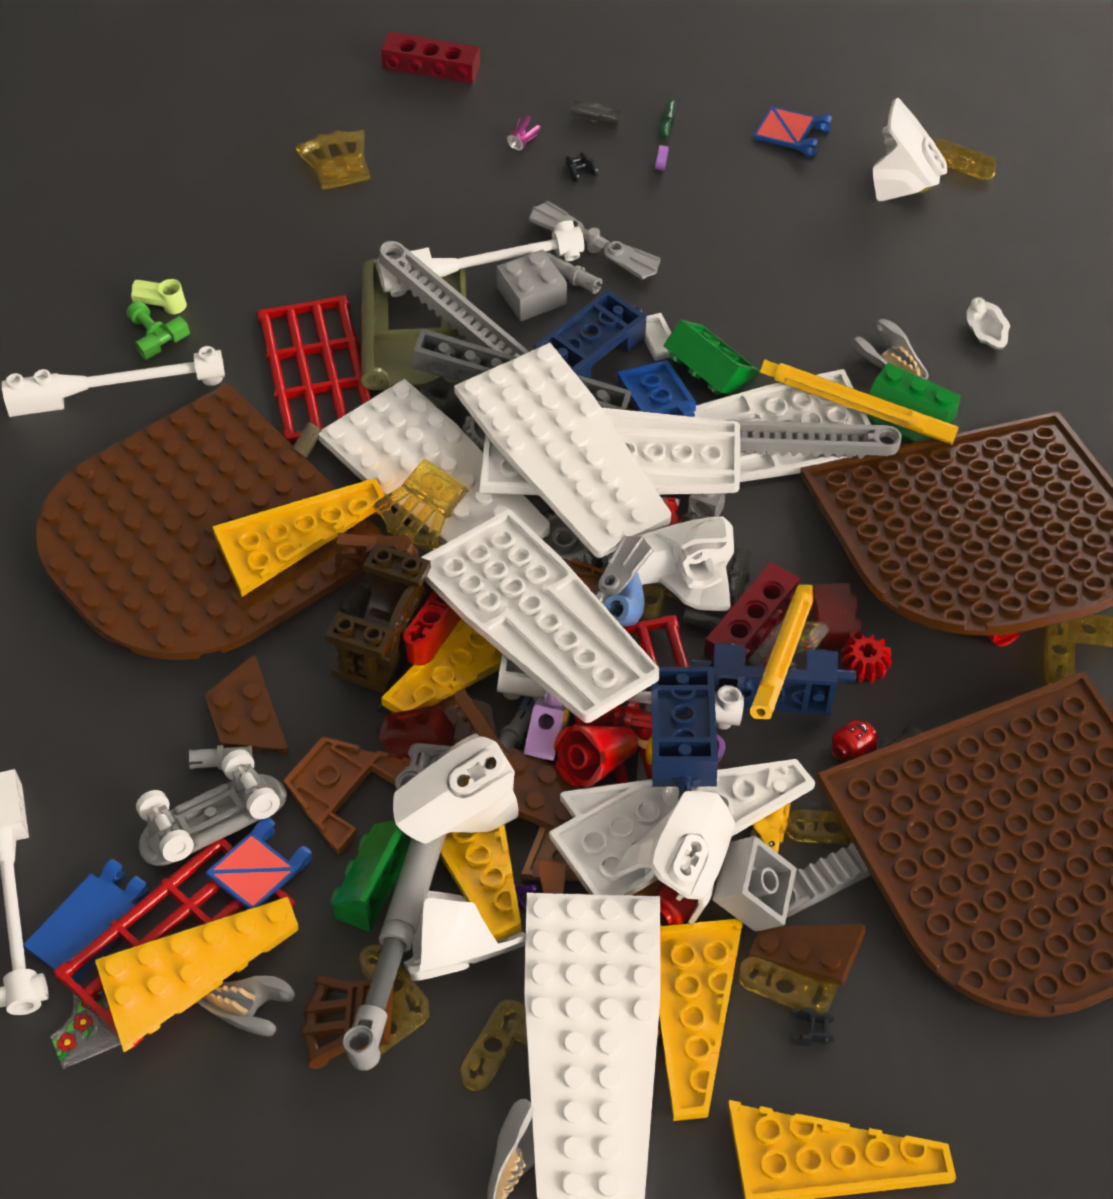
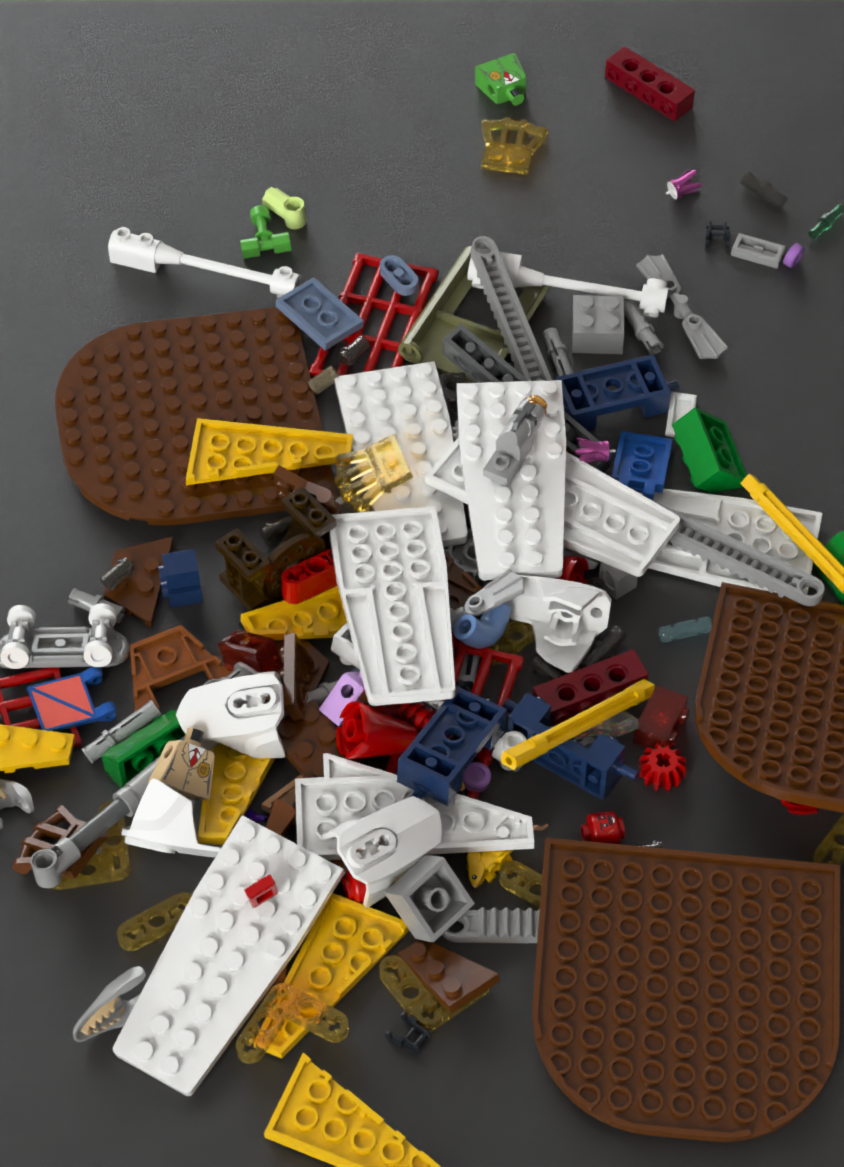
camera: 30 degrees right, 0 degrees up
(229, 708) = (117, 573): none -> clear smoke pin
(263, 379) = (319, 313): none -> sand blue plate
(292, 102) = (502, 79): none -> bright green torso
(296, 689) = (180, 578): none -> dark blue brick
(316, 313) = (402, 278): none -> sand blue plate
(317, 406) = (349, 354): none -> clear smoke pin
(333, 870) = (121, 731): none -> light grey pin
(438, 871) = (186, 766): none -> tan torso
(500, 317) = (555, 345): none -> light grey pin
(554, 411) = (516, 440): none -> light grey plate
(599, 957) = (261, 891): none -> red tile
(619, 395) = (594, 452): none -> flat silver piece
(625, 166) = (757, 251): none -> light grey tile
(692, 1064) = (290, 1011): none -> clear yellow beam
(795, 524) = (685, 629): none -> clear light blue axle

